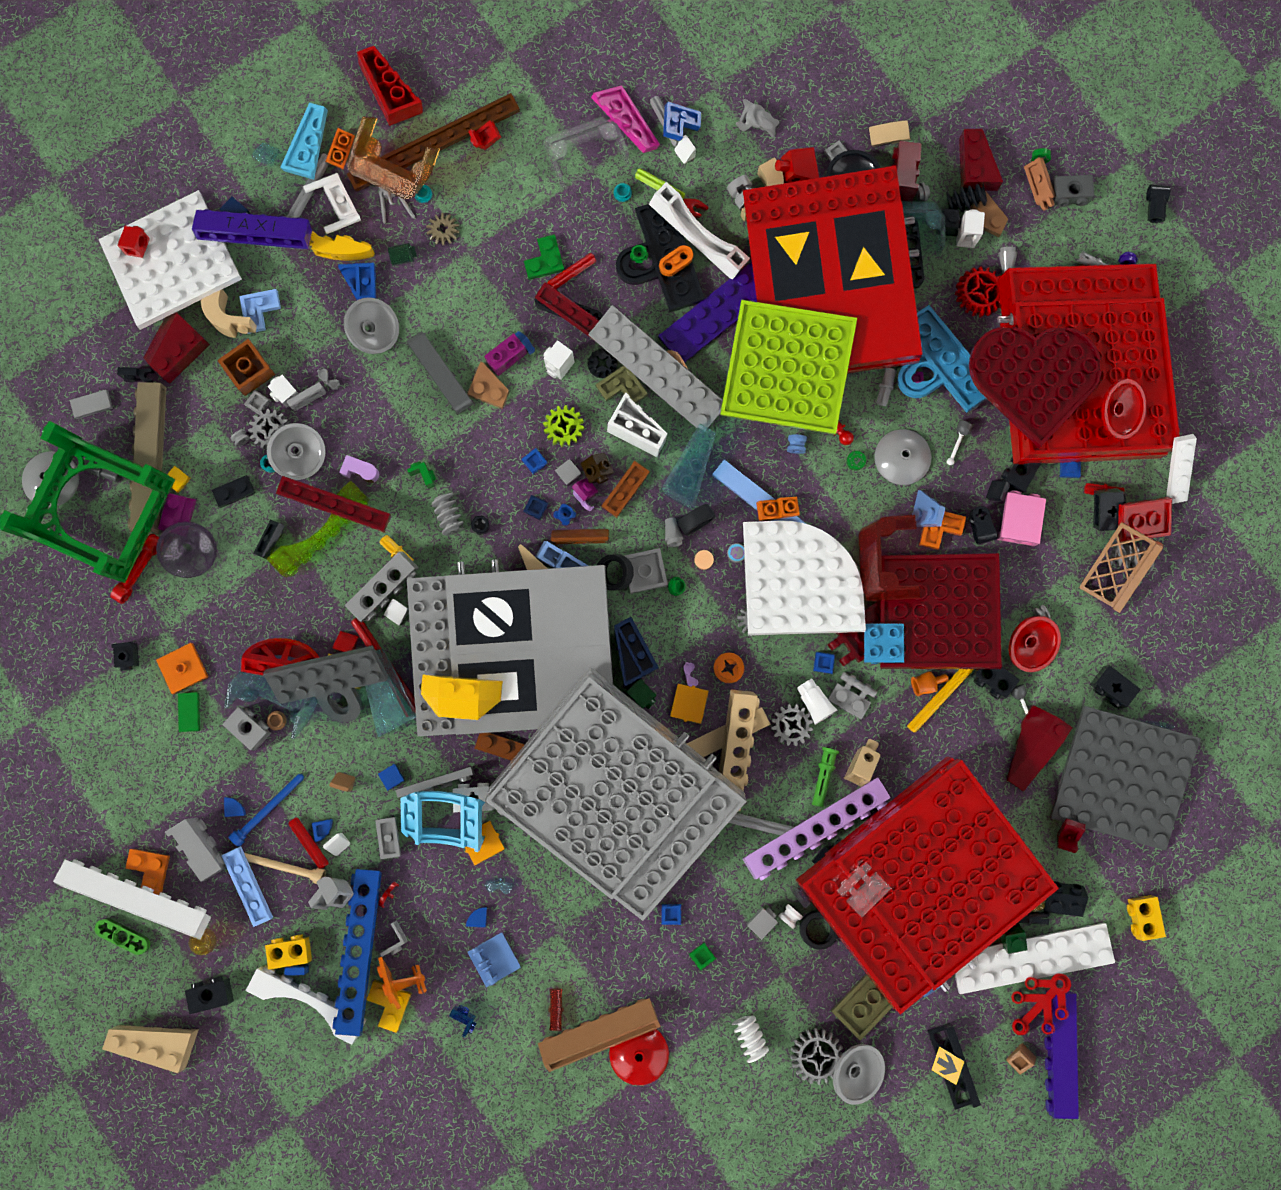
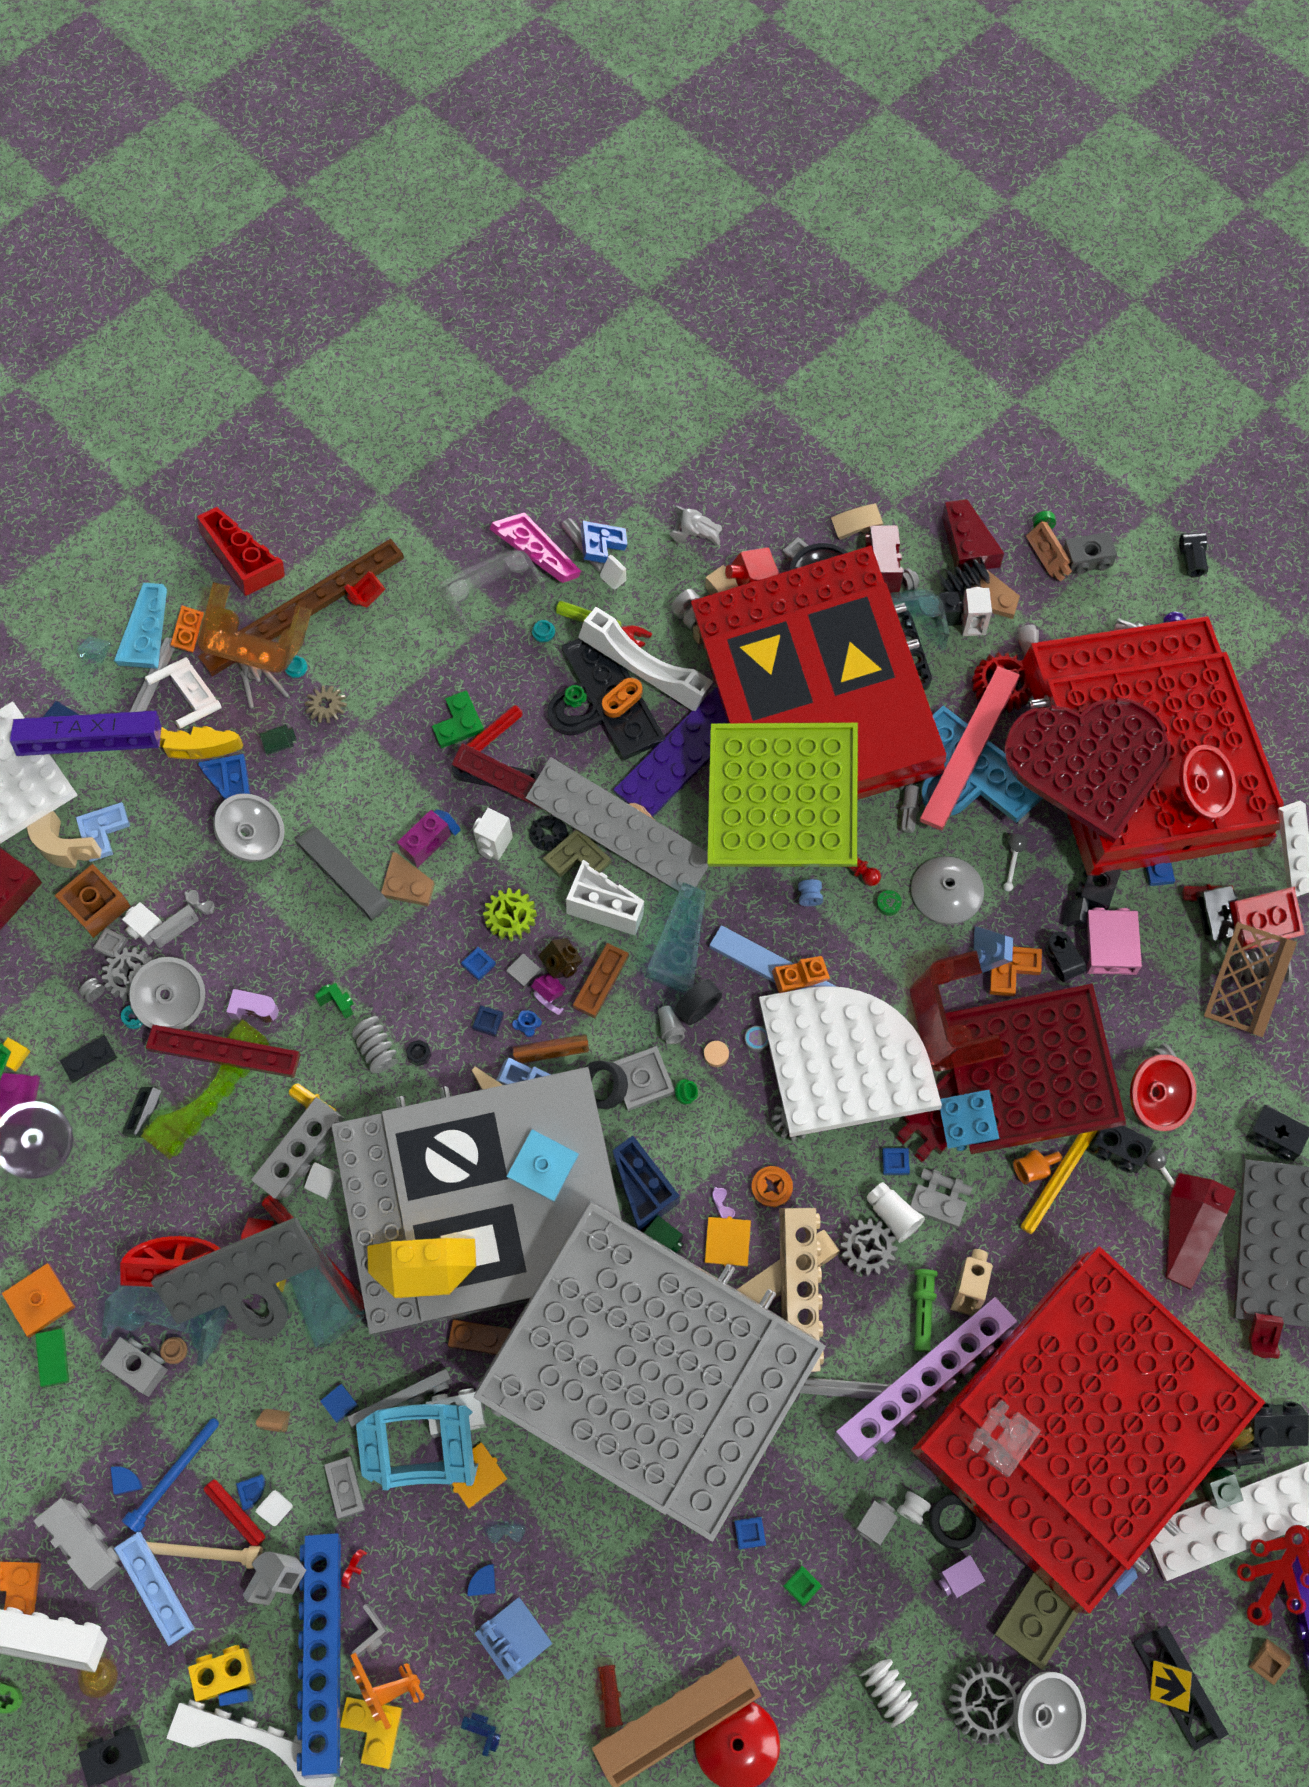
camera: 10 degrees left, 15 degrees down
(559, 635) = (542, 1165): none -> medium azure plate
(814, 969) = (960, 1578): none -> lavender brick
(943, 345) = (969, 748): none -> coral tile

